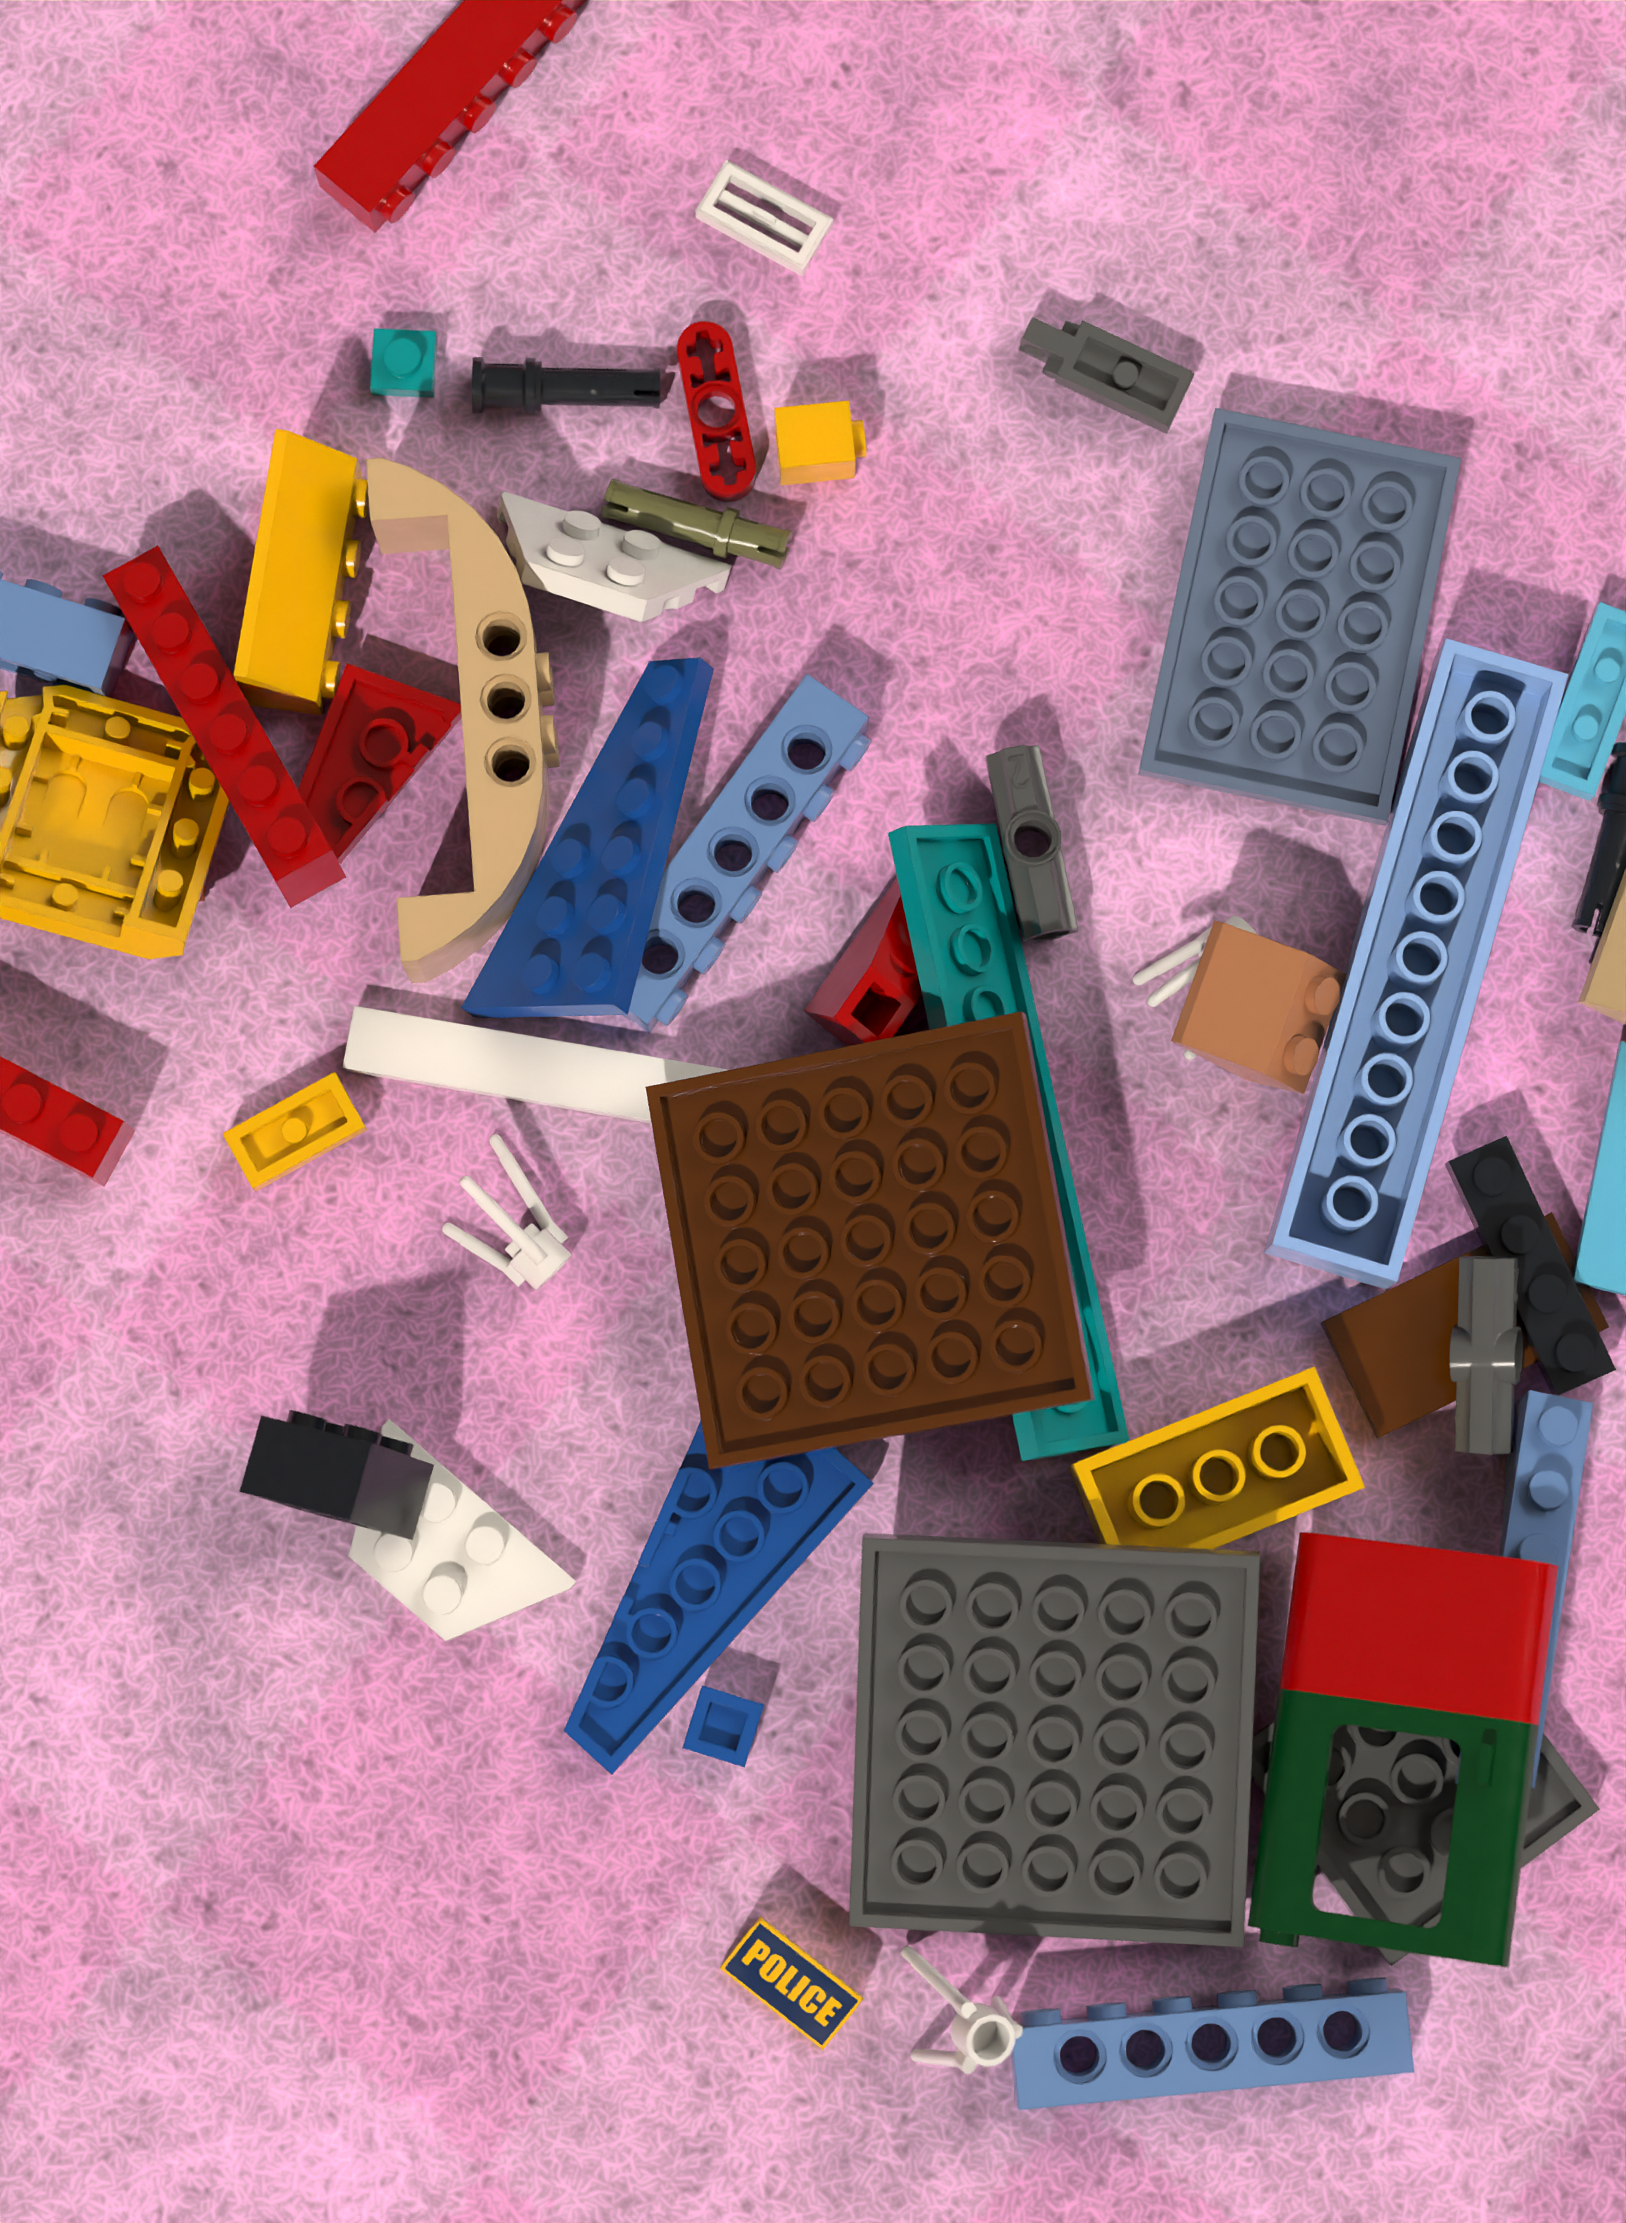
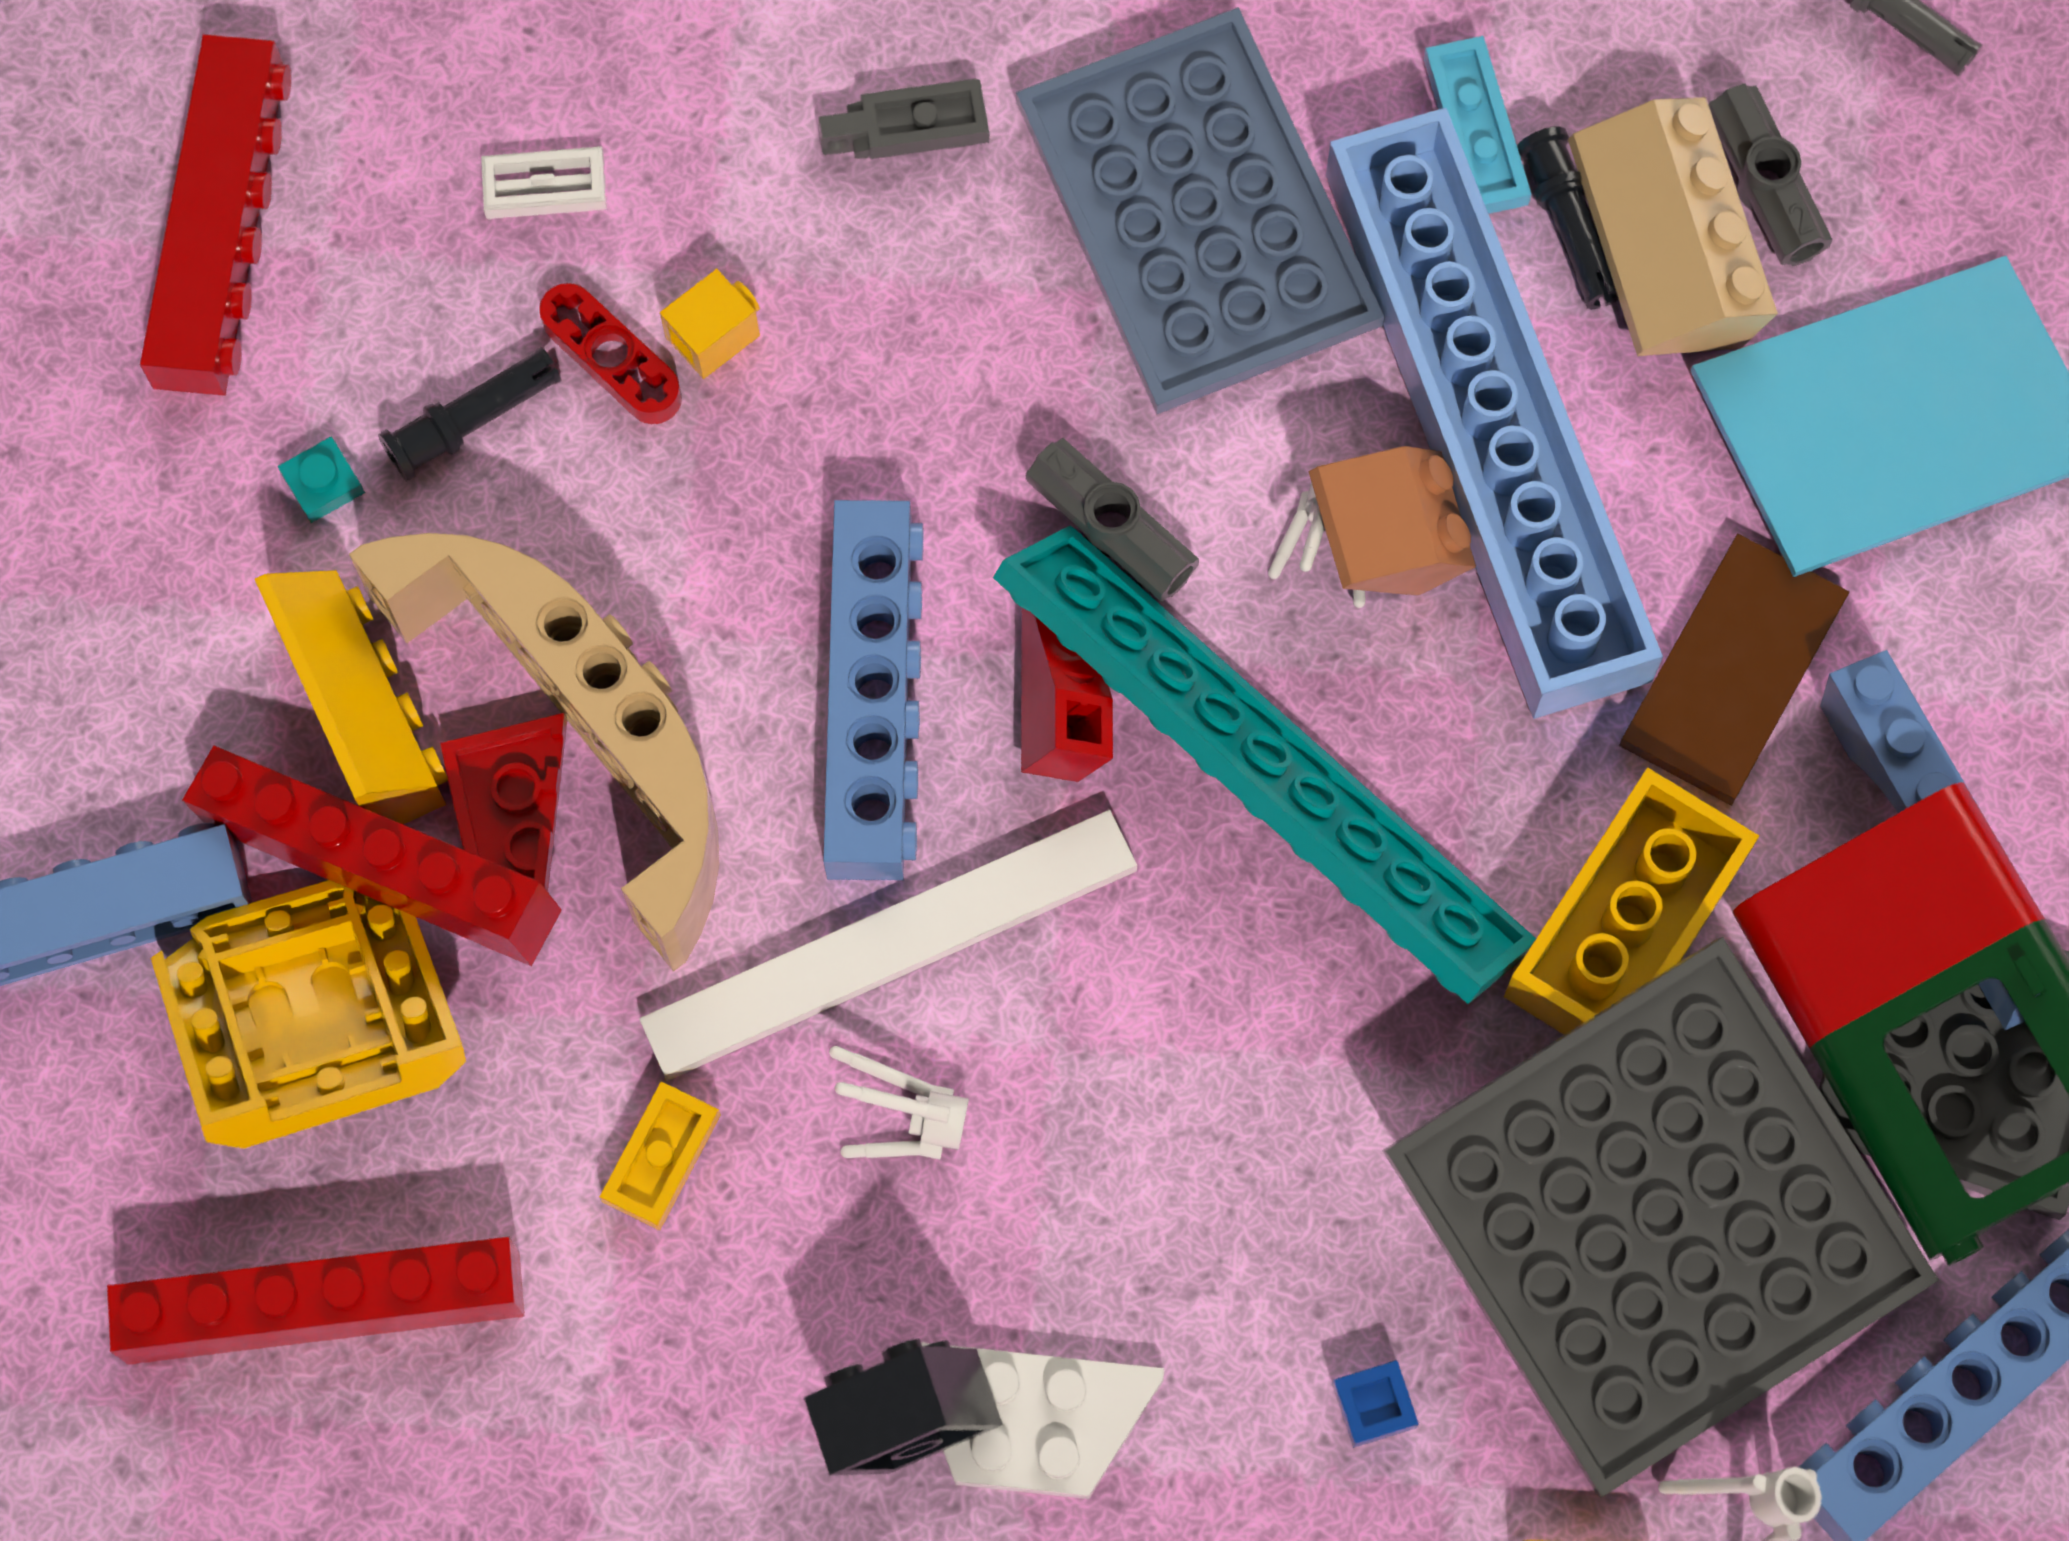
camera: 30 degrees left, 10 degrees down
(593, 896) = (780, 789): blue wing -> none
(601, 563) = (606, 524): white wing -> none
(698, 524) = (657, 448): olive pin -> none
(701, 1579) = (1265, 1240): blue wing -> none
(869, 1242) = (1215, 910): reddish brown plate -> none
(1486, 1354) = (1773, 670): dark grey piece -> none
(1548, 1297) = (1753, 583): black plate -> none

